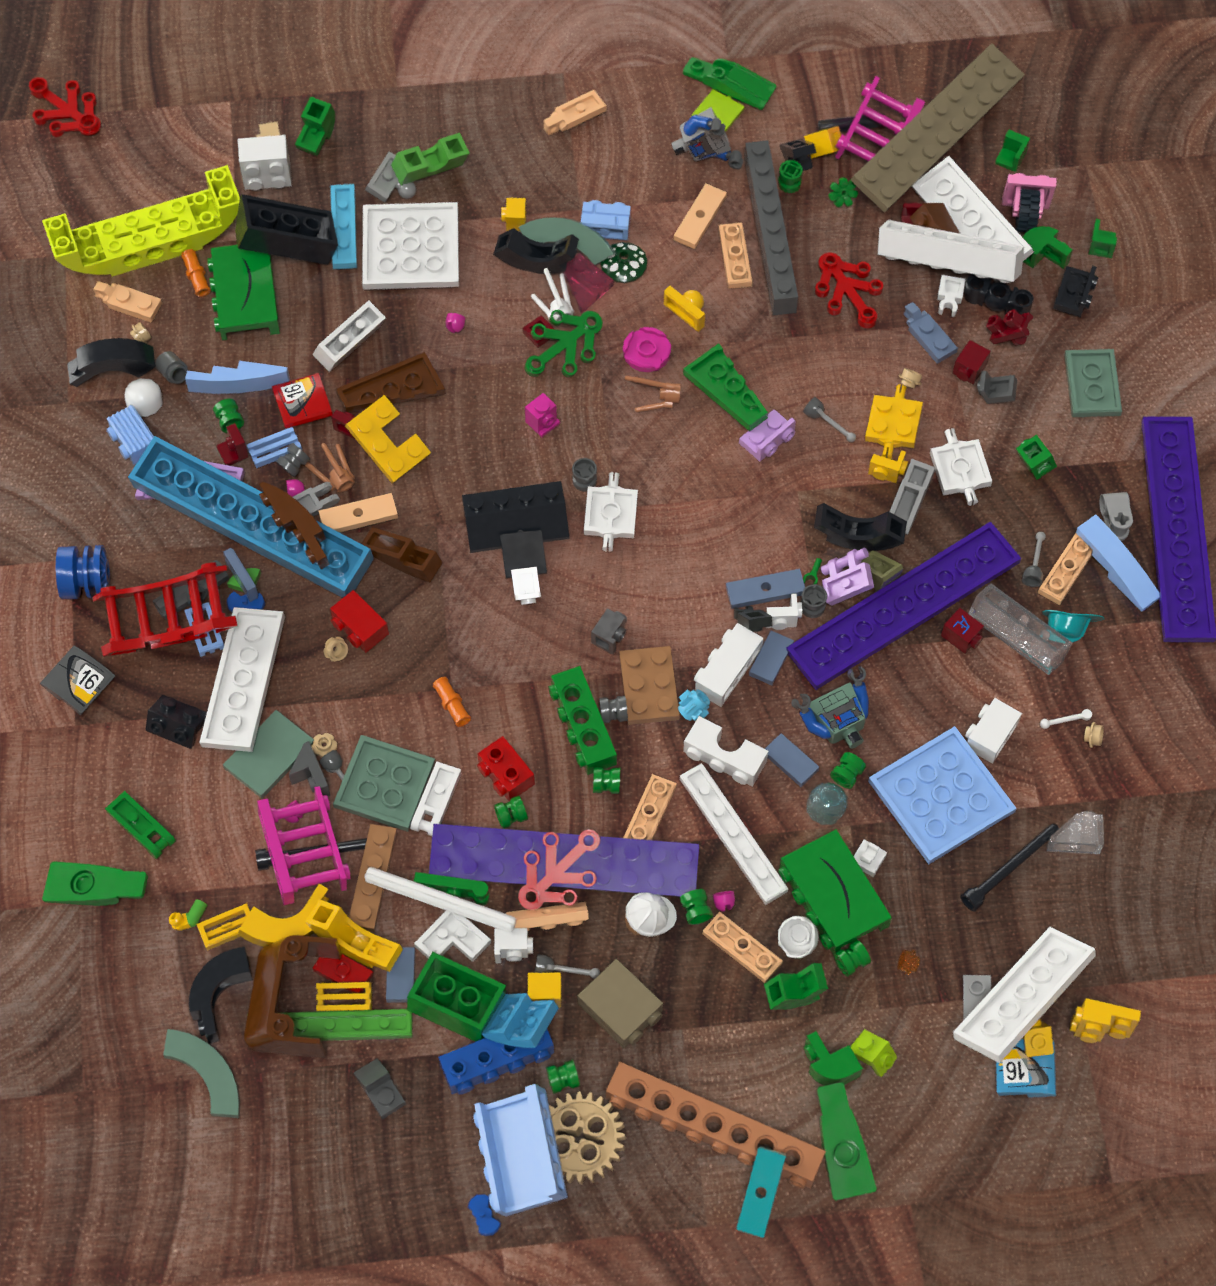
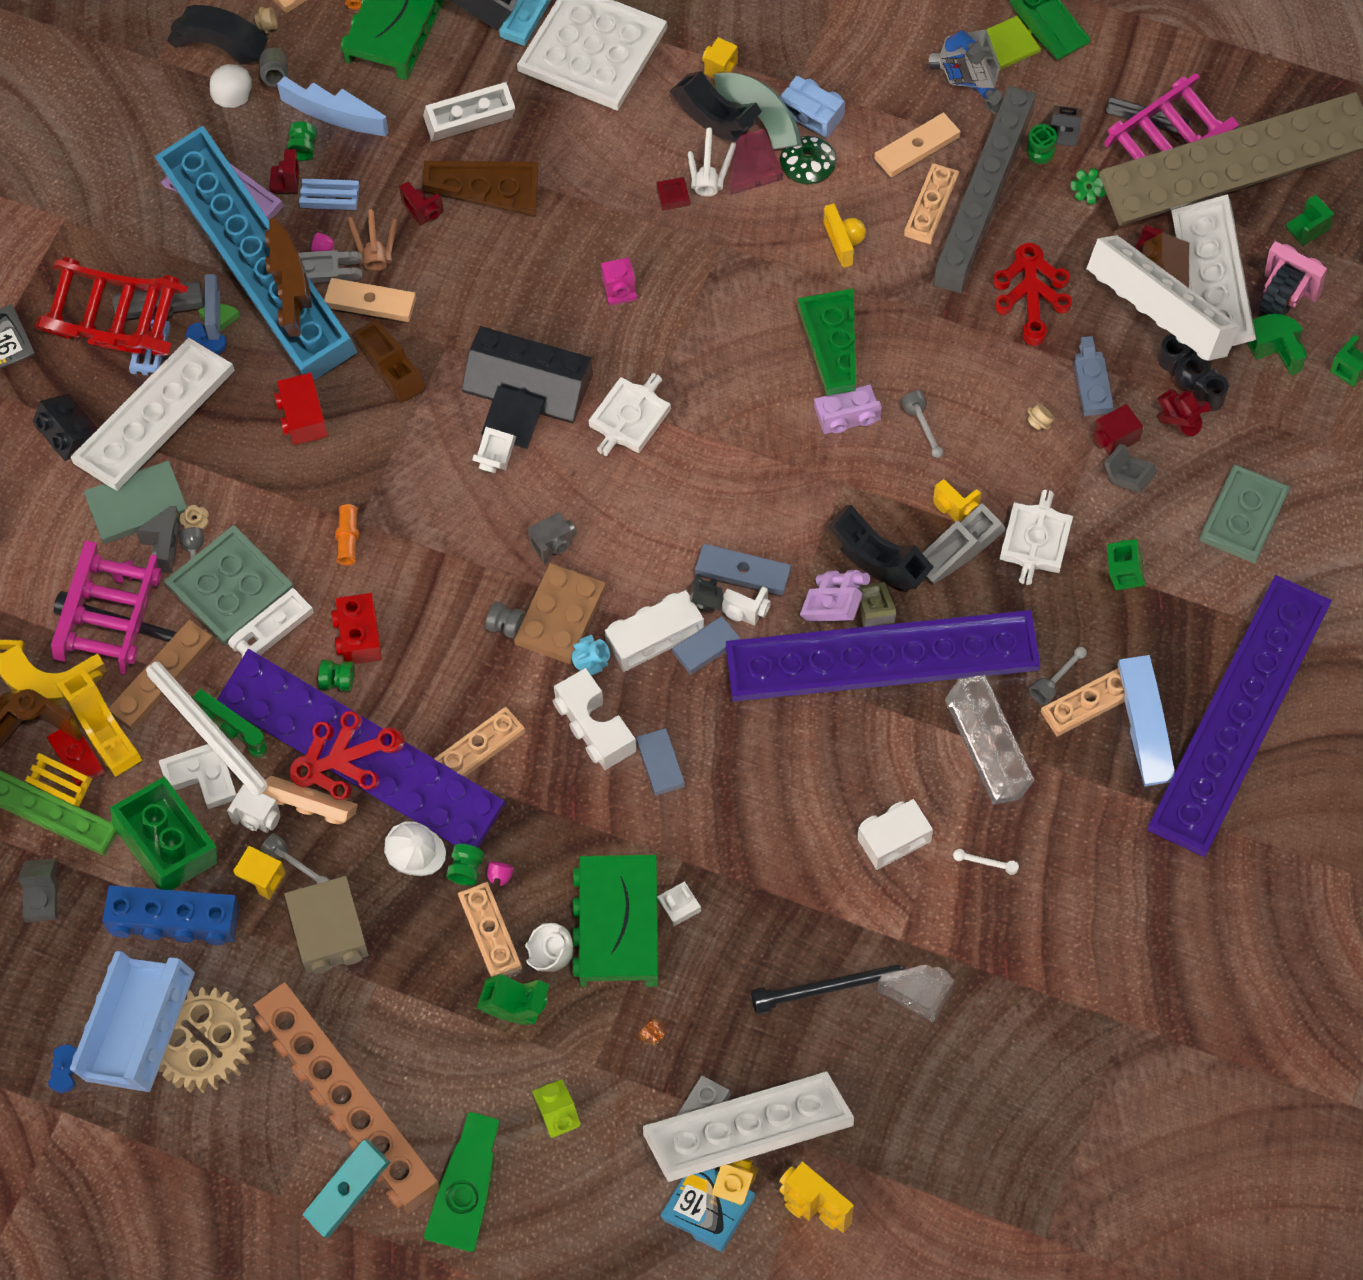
camera: 30 degrees right, 0 degrees up
(75, 572) = (59, 231): blue wheel -> none
(130, 432) = (193, 110): light blue brick -> none
(292, 461) = (333, 216): dark grey wheel -> none
(302, 400) = (384, 158): red slope -> none
(340, 651) = (263, 433): tan plate -> none
(390, 459) = (426, 218): yellow plate -> none
(401, 977) = (129, 783): sand blue tile -> none
(455, 322) = (589, 146): dark pink hinge -> none
(520, 1021) = (208, 889): dark azure slope -> none
(562, 1076) = (223, 969): green wheel -> none
(566, 340) = (692, 214): green plant -> none
(573, 683) = (466, 660): green brick -> none
(581, 469) = (625, 362): dark grey wheel -> none
(606, 780) = (454, 690): green wheel -> none
(647, 349) = (775, 262): dark pink tile -> none
(668, 392) = (767, 316): nougat plant -> none
(733, 834) = (553, 810): white tile -> none
(813, 574) = (804, 579): green hand -> none
(815, 595) = (785, 599): dark grey wheel -> none
(824, 141) = (1099, 120): yellow panel -> none
(826, 803) = (670, 825): clear light blue hair -> none
(831, 1068) = (504, 1102): green brick -> none
(837, 713) = (737, 735): torso -> none
(848, 769) = (710, 801): green wheel -> none
(851, 958) = (593, 998): green wheel -> none
(894, 421) = (993, 456): yellow plate -> none
(941, 795) = (797, 875): light blue plate -> none
(950, 293) = (1143, 344): white plate -> none
(963, 631) = (927, 713): dark red brick -> none
(1070, 625) = (1046, 763): teal piece -> none
(1074, 290) = (1284, 404): black bracket -> none
(1094, 734) = (1004, 892): tan plate -> none
(1117, 513) = (1179, 666): light grey piece -> none

